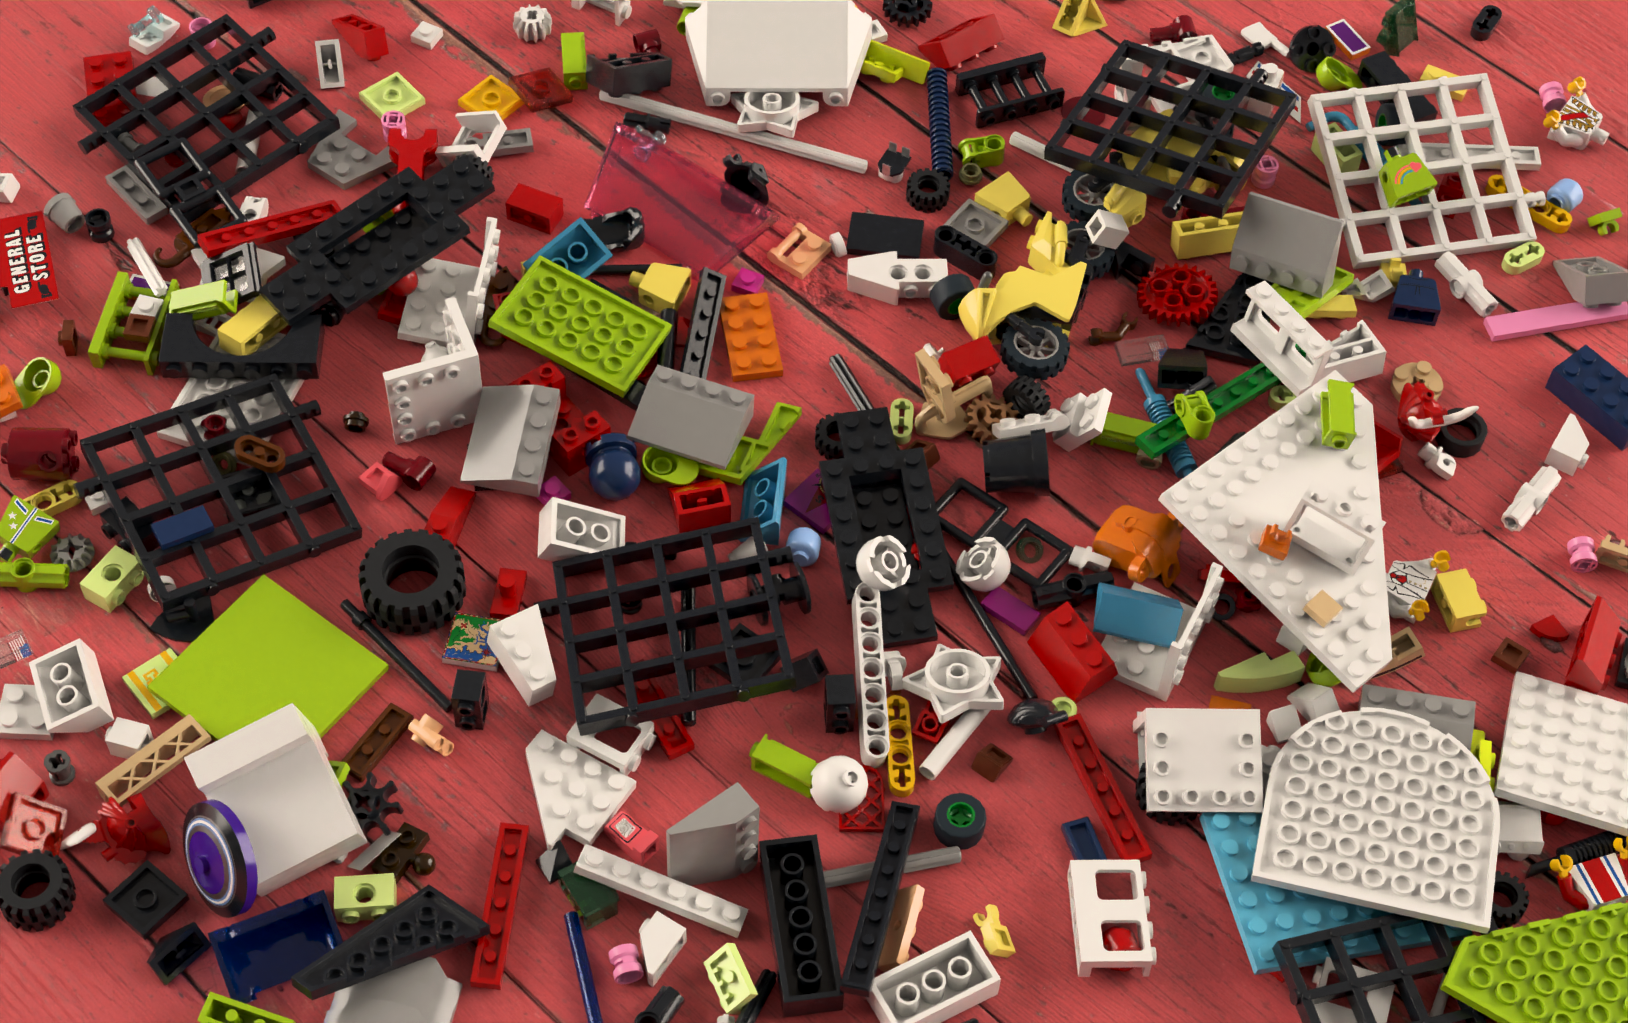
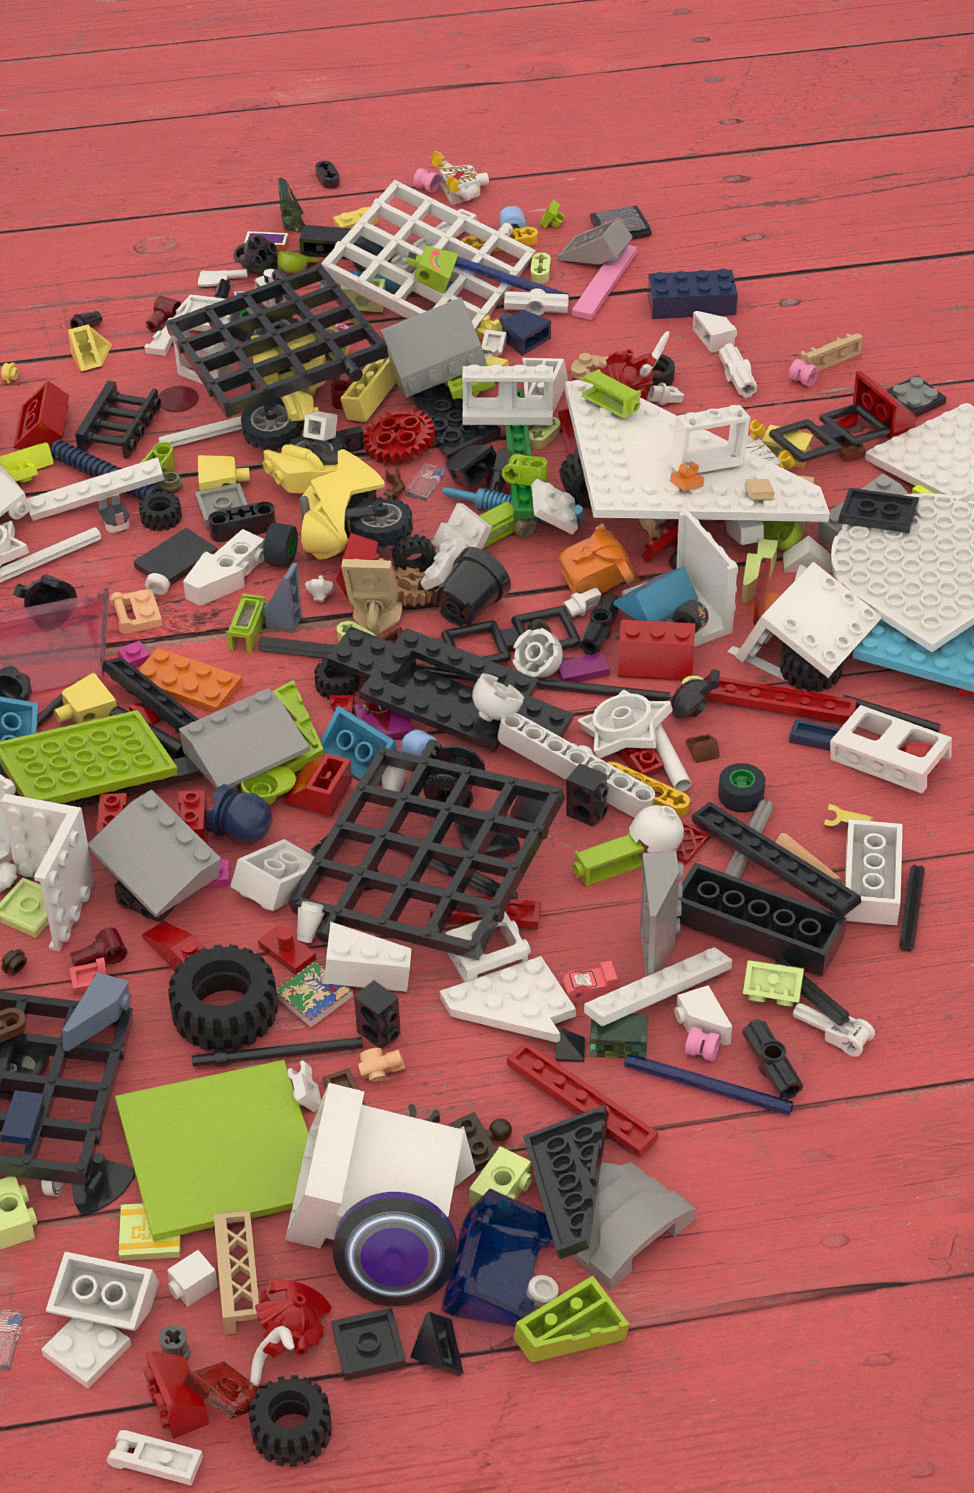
camera: 50 degrees left, 10 degrees down
(280, 994) = (542, 1290): none -> white tile
(330, 505) = (97, 1009): none -> sand blue slope
(366, 697) = (305, 1089): none -> white plate
(541, 588) = (309, 919): none -> white cone
(812, 459) = (345, 701): none -> red tile
(847, 334) = (247, 621): none -> lime window
(881, 345) = (285, 608): none -> sand blue slope
(907, 131) = (95, 489): none -> white plate
(1130, 654) = (692, 612): none -> black head
(1167, 895) = (900, 715): none -> black bar
(1175, 458) = (554, 506): none -> white plate
(1223, 690) = (762, 589): none -> clear red tile
(1406, 727) = (879, 510): none -> black tile
(1466, 242) = (502, 276): none -> clear blue piece
(1504, 625) = (830, 433): none -> black bar

